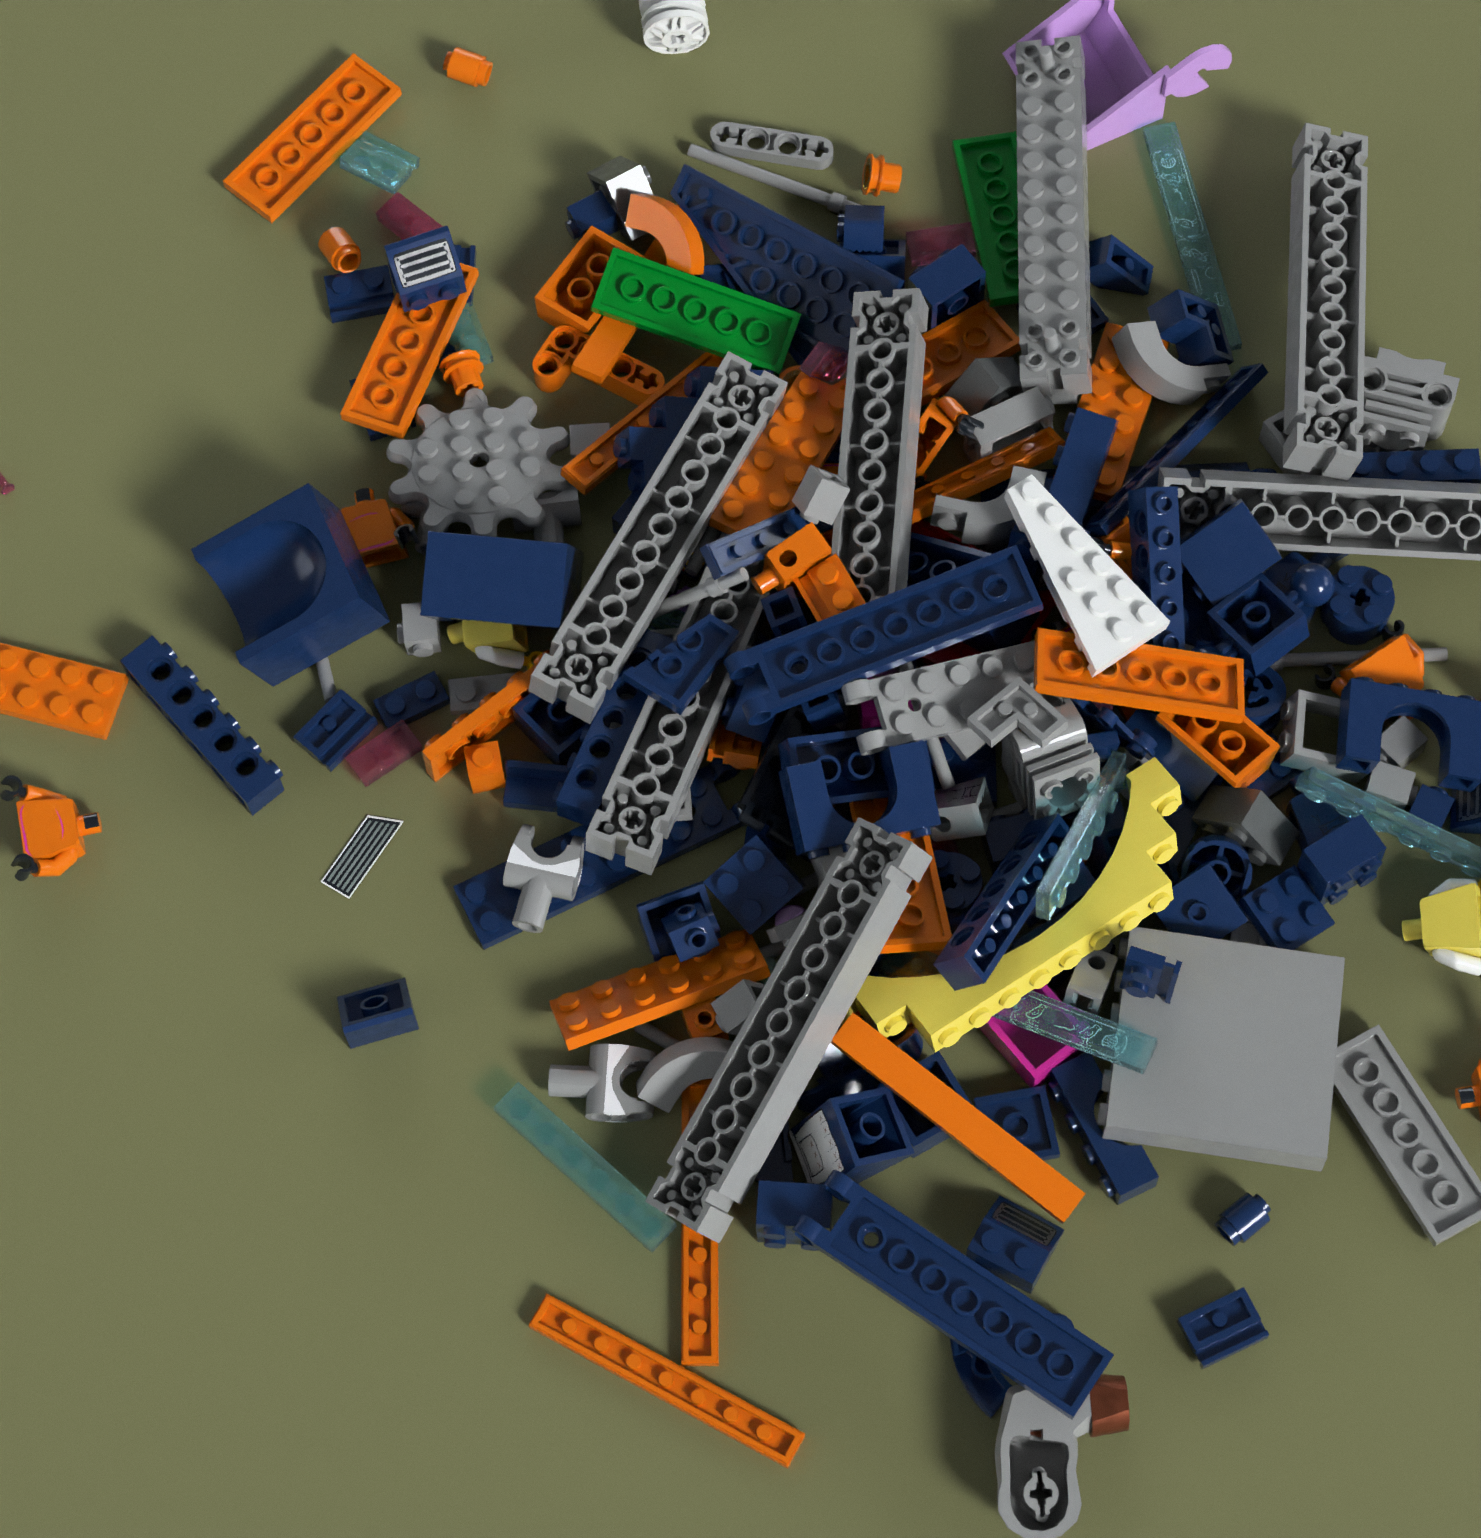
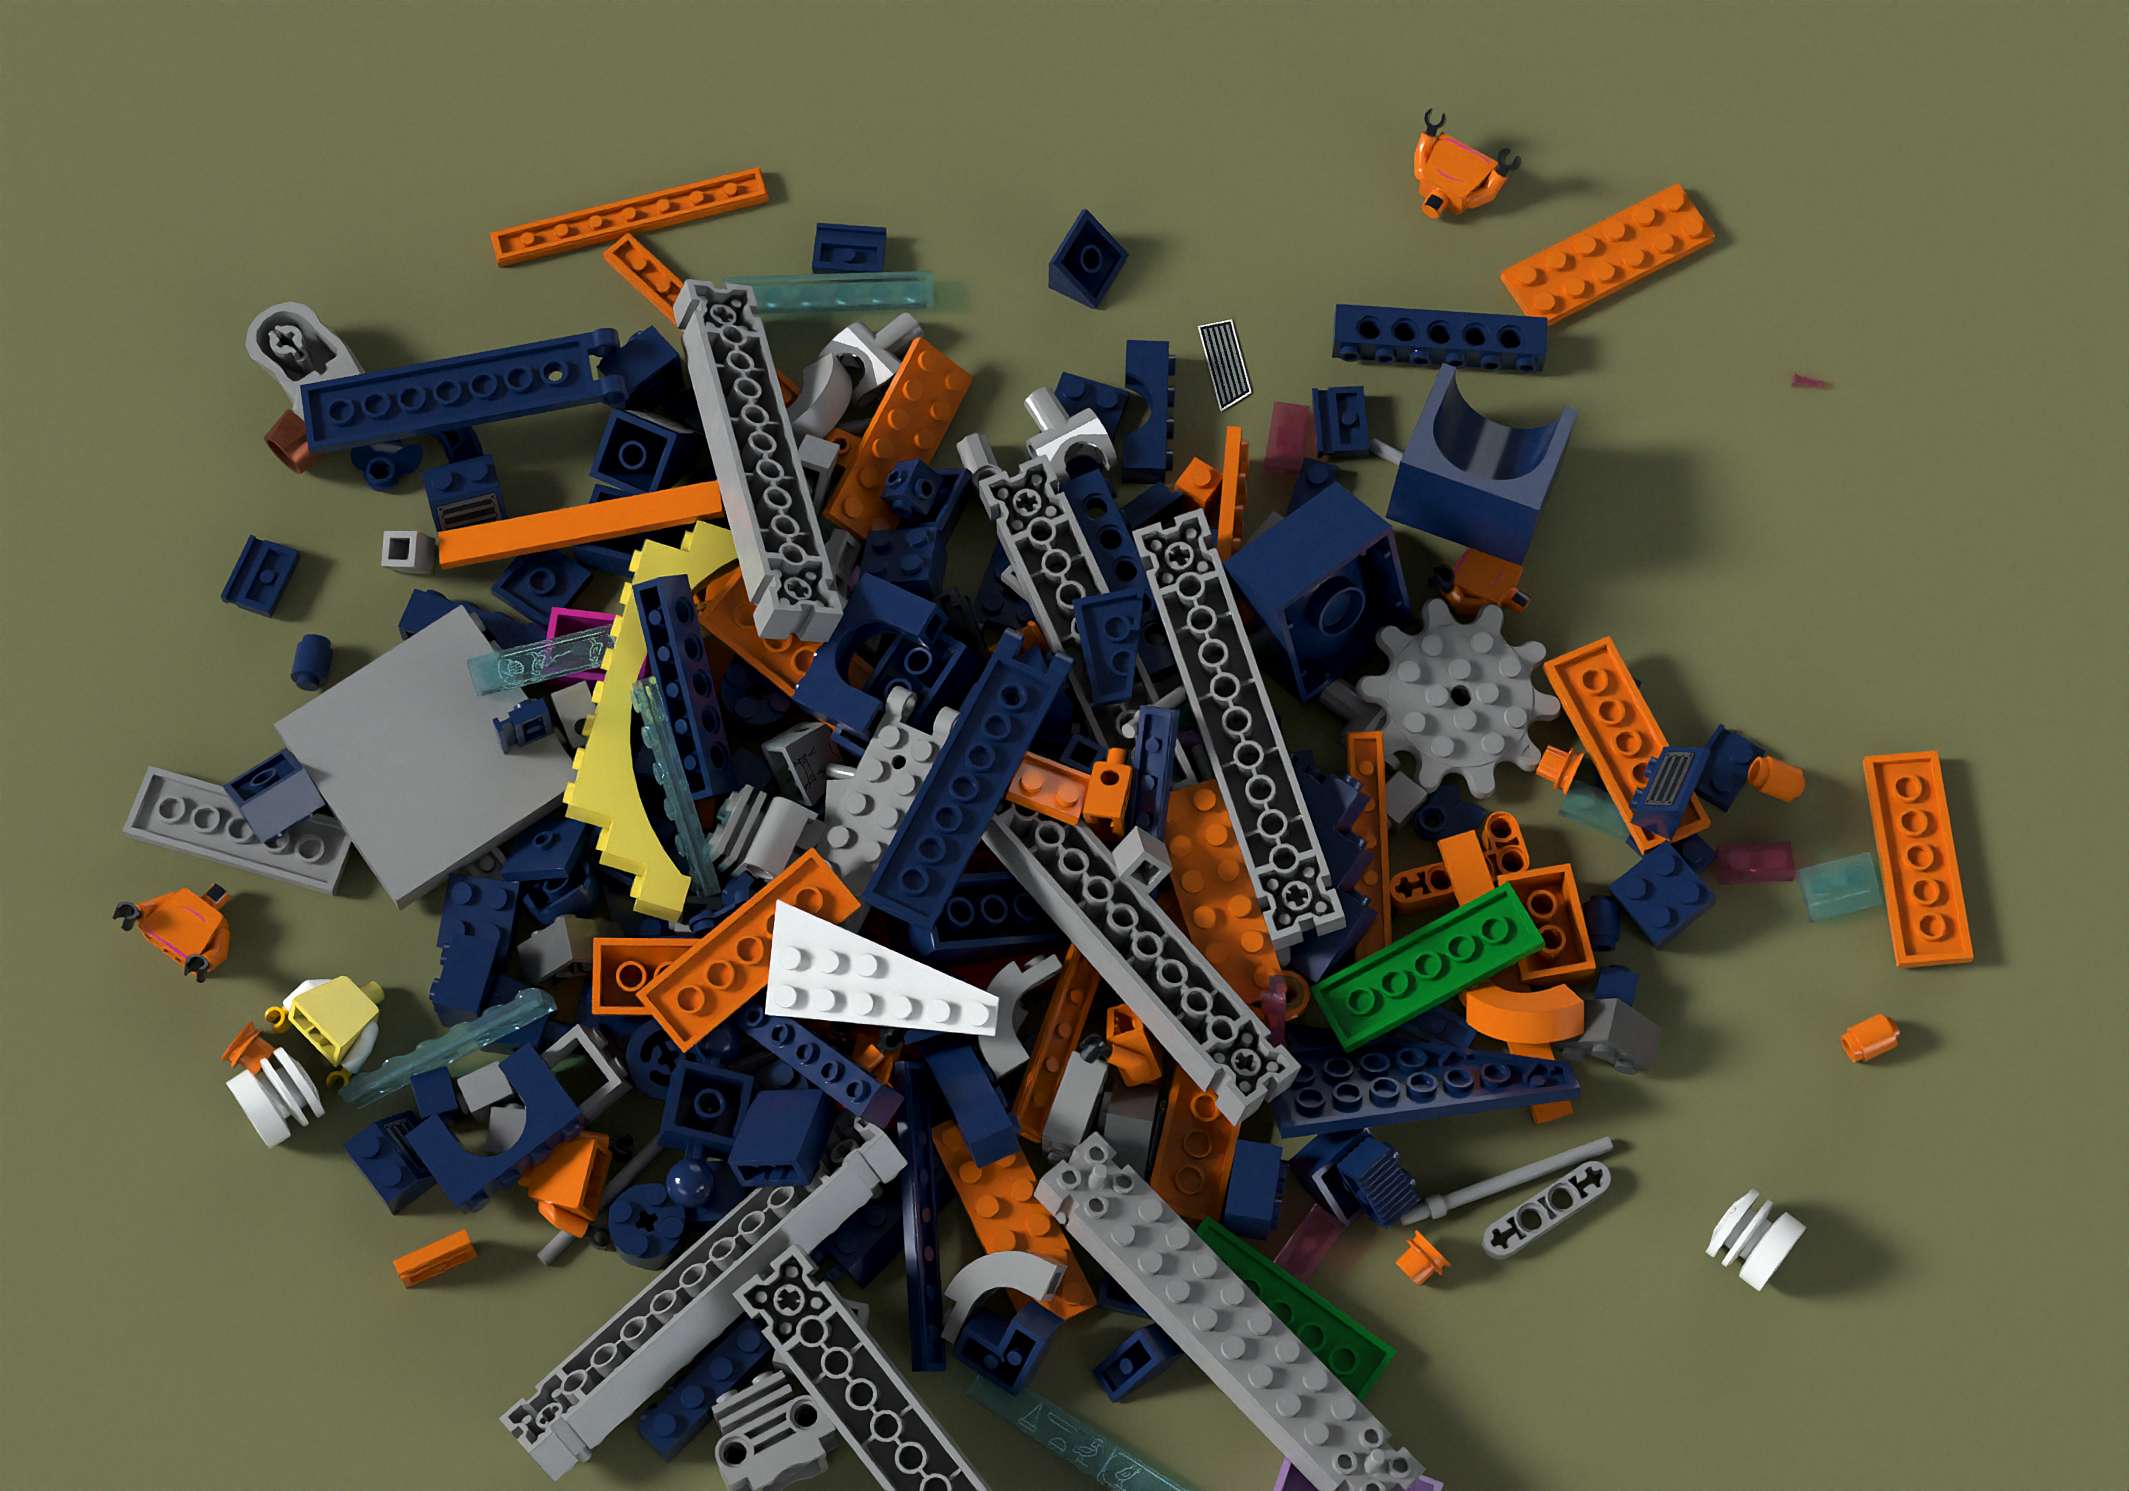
camera: 130 degrees right, 0 degrees up
(489, 828) = (1147, 375): none -> dark blue arch
(497, 240) = (1662, 895): none -> dark blue brick
(534, 1186) = (848, 249): none -> dark blue plate
(545, 264) = (1602, 922): none -> dark blue brick
(567, 410) = (1450, 814): none -> dark blue plate
(616, 923) = (979, 459): none -> light grey piece
(1017, 707) = (812, 823): light grey plate -> none
(1097, 1233) = (408, 552): none -> light grey brick
(1367, 1124) = (274, 795): none -> dark blue slope

